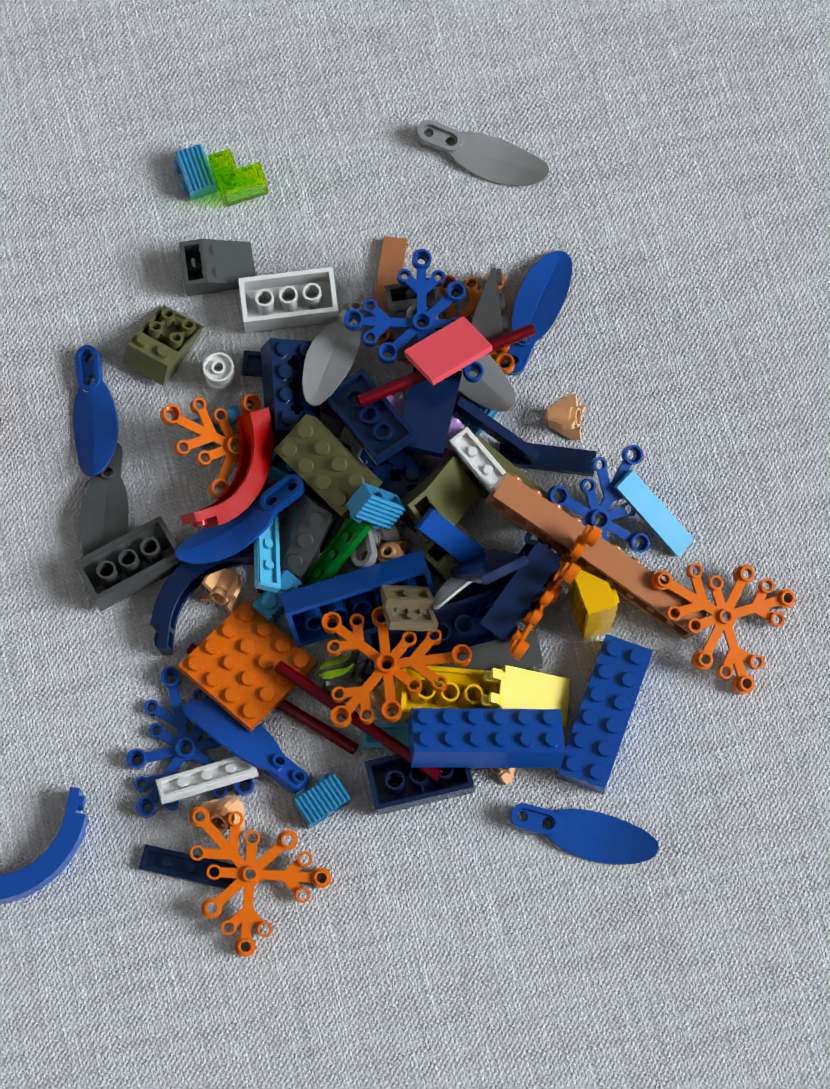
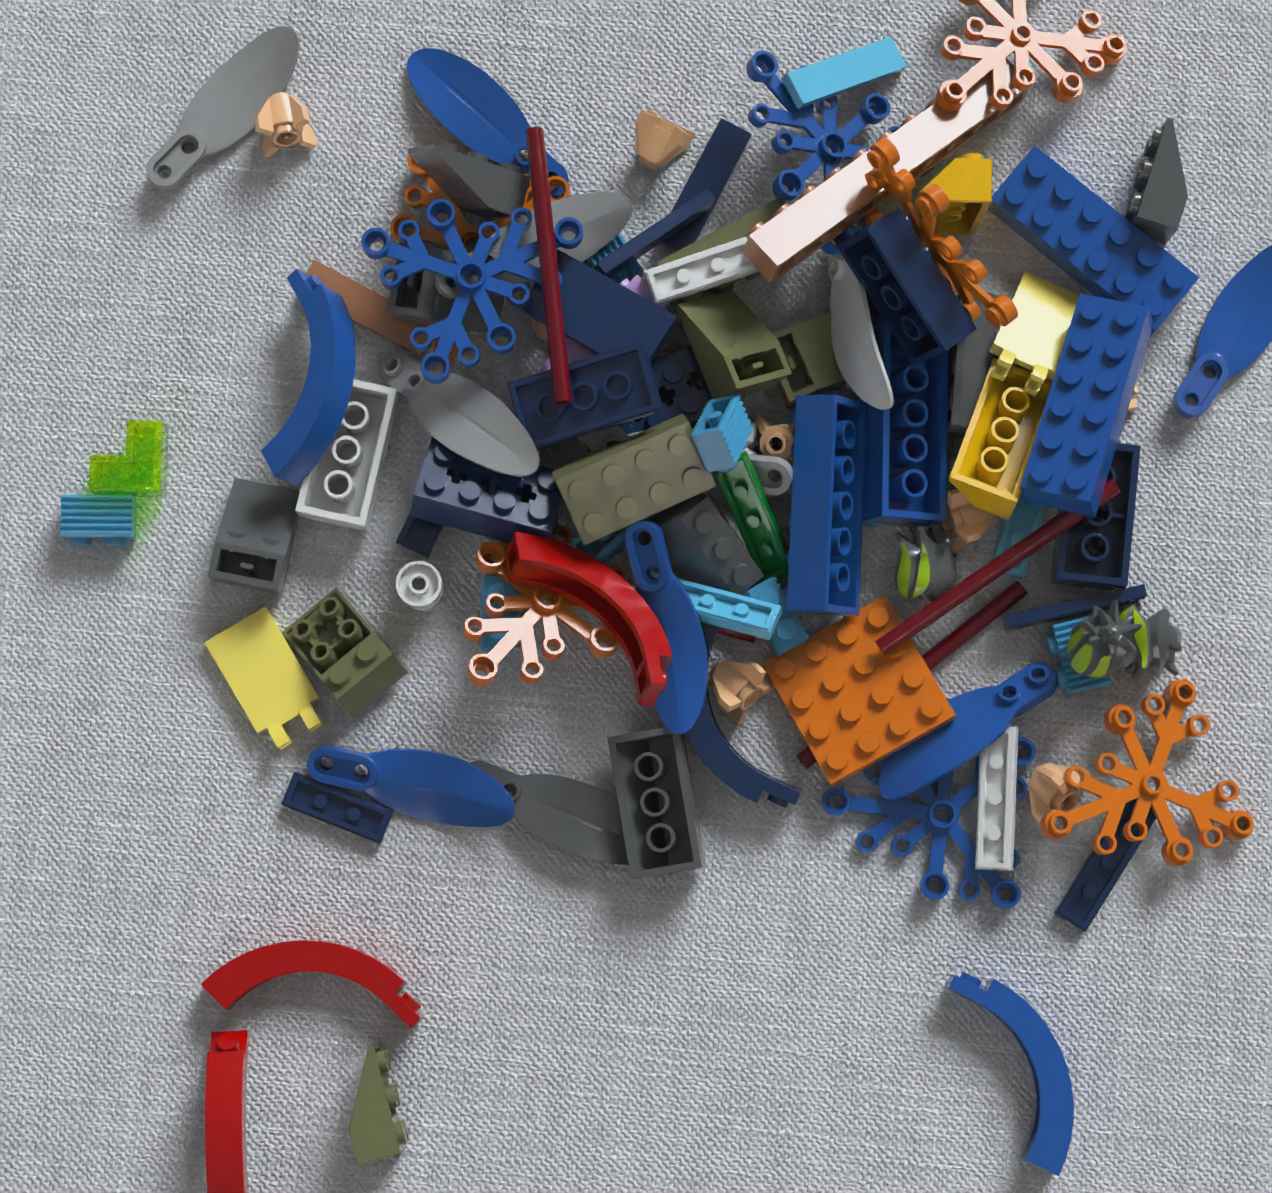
camera: 75 degrees left, 10 degrees up
(63, 376) = (337, 807): none -> dark blue tile
(131, 304) = (265, 675): none -> light yellow tile
(323, 265) = (327, 384): none -> blue arch
(329, 802) = (1101, 642): none -> dark grey hair
(345, 839) = (1154, 643): none -> dark grey hair
(352, 786) = (1073, 608): none -> dark blue tile
(408, 608) = (878, 441): dark tan slope -> none
(417, 661) = (956, 457): orange plant -> none
(448, 350) = (532, 253): coral tile -> none
(448, 536) = (793, 352): blue tile -> none
(487, 189) = (284, 123): none -> light nougat brick
(489, 566) = (866, 310): dark blue tile -> none
(653, 743) = (1160, 186): none -> dark grey slope

